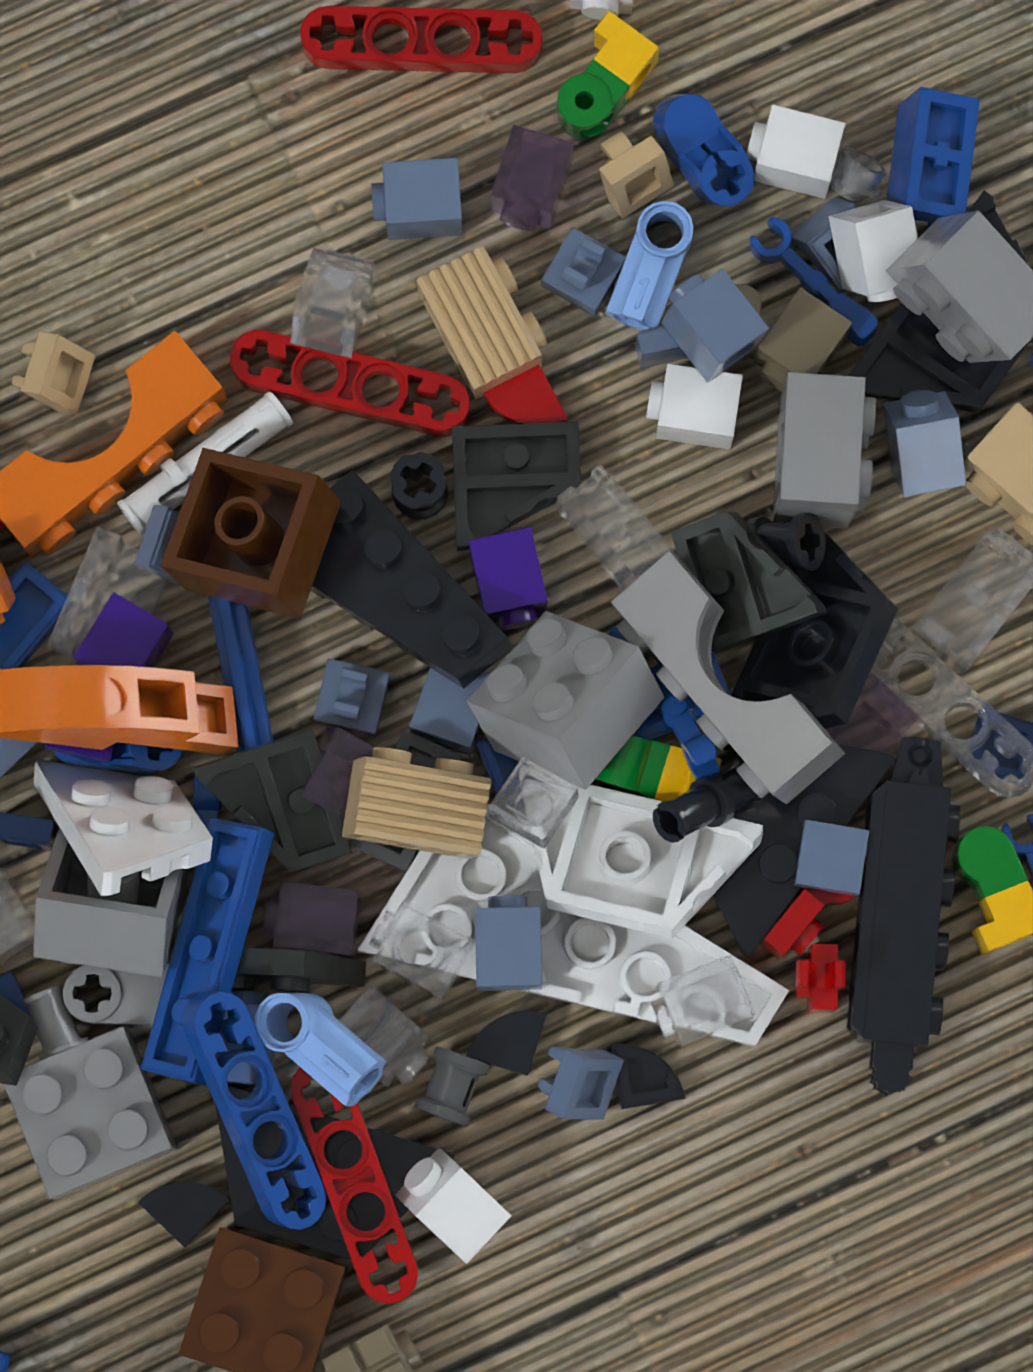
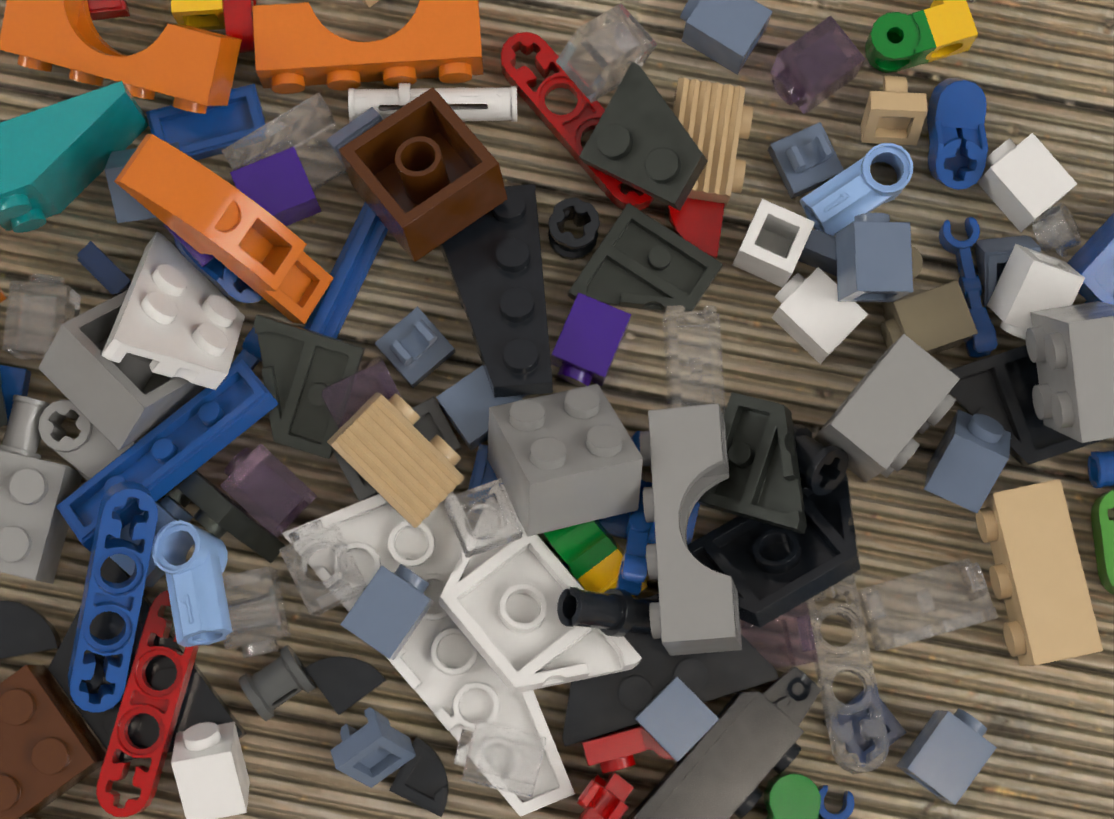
camera: 30 degrees right, 0 degrees up
(429, 361) = (644, 143): none -> pearl dark grey wing
(611, 371) = (773, 243): none -> white brick

